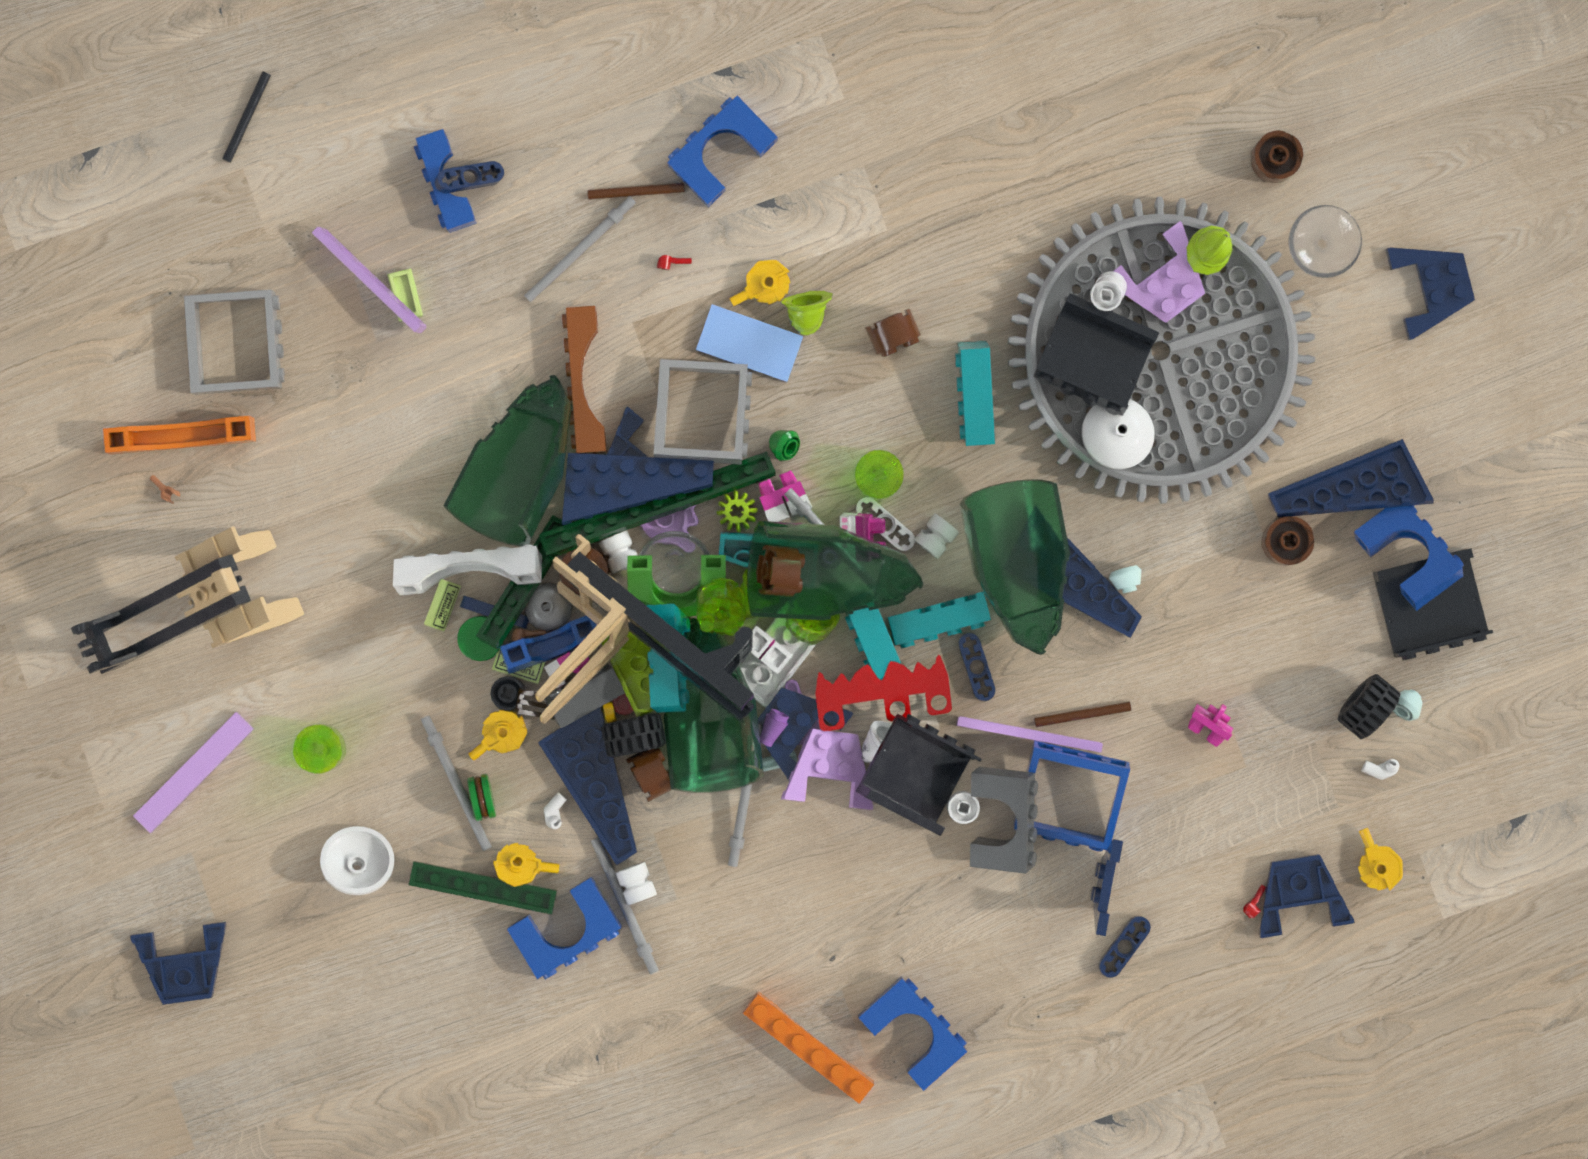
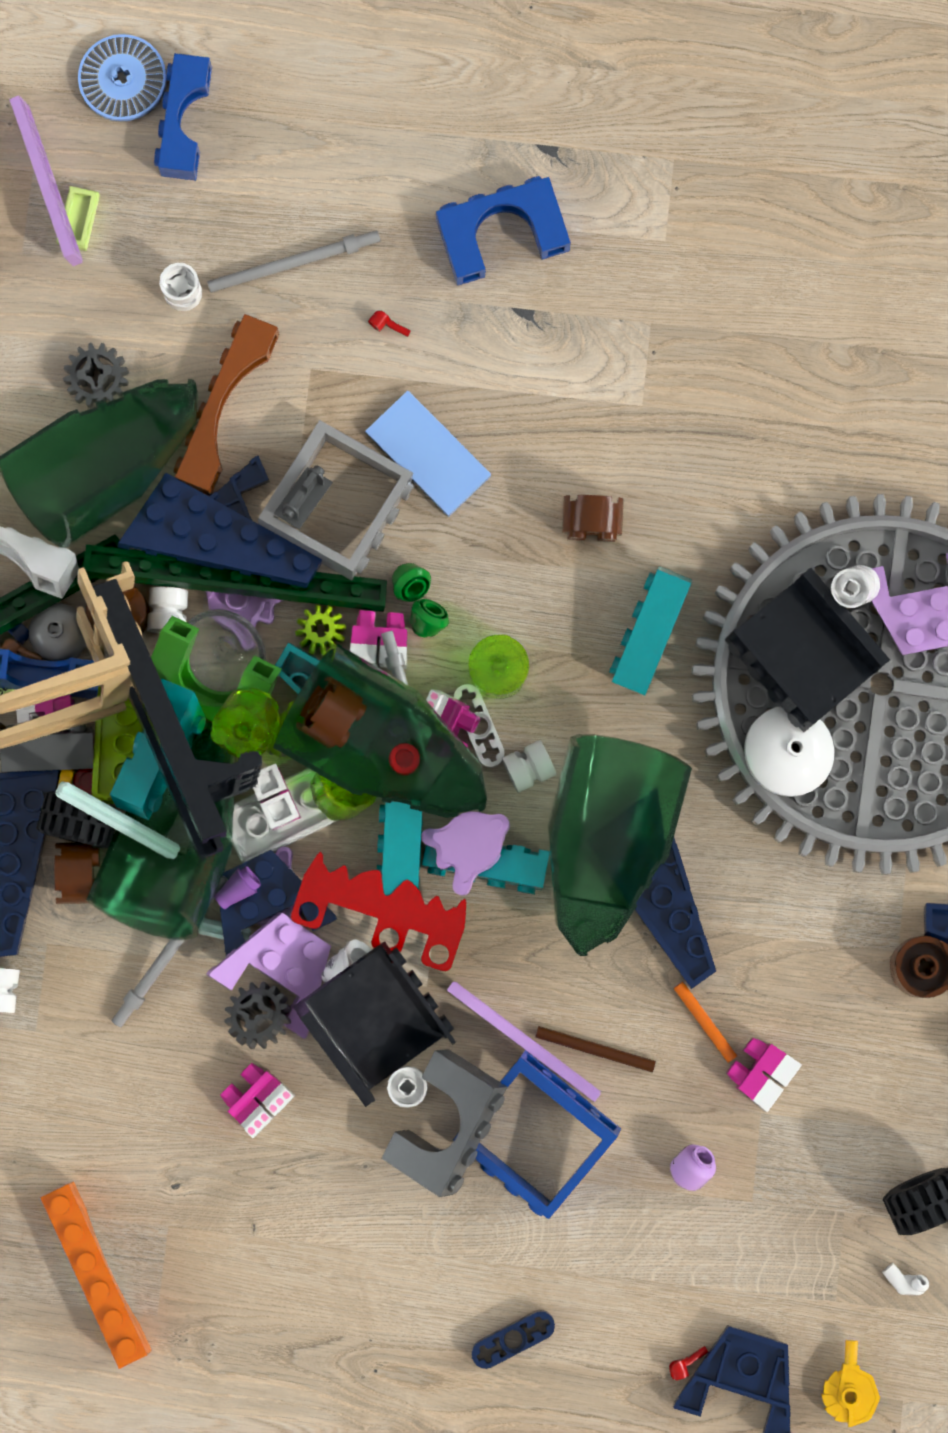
camera: 25 degrees right, 5 degrees down
(383, 192) = (100, 72): none -> piece
(461, 184) = (194, 108): dark blue beam -> none
(470, 412) = (84, 376): none -> dark grey gear
(508, 310) = (180, 286): none -> white wheel
(636, 191) = (387, 229): reddish brown bar -> none
(664, 721) = (117, 820): none -> light aqua axle
(678, 422) = (303, 496): none -> dark grey hinge
(765, 282) = (479, 396): yellow piece -> none
(807, 310) = (508, 448): lime piece -> none
(810, 464) = (428, 618): none -> green cone
(839, 816) = (263, 1026): none -> dark grey gear
(846, 576) = (404, 759): none -> red tile
(857, 879) = (247, 1108): none -> dark pink hips
(902, 999) = (252, 1352): blue arch -> none
(922, 615) = (469, 845): none -> lavender tile
(965, 651) = (513, 914): dark blue beam -> none
(1101, 894) = (515, 1264): dark blue wing -> none
(1126, 578) = (719, 919): light aqua cone -> none
(1151, 656) = (705, 1022): none -> orange bar
(1193, 763) = (693, 1167): none -> lavender head
(1209, 683) = (752, 1080): none -> dark pink hips
(1213, 719) = (738, 1126): dark pink hips -> none

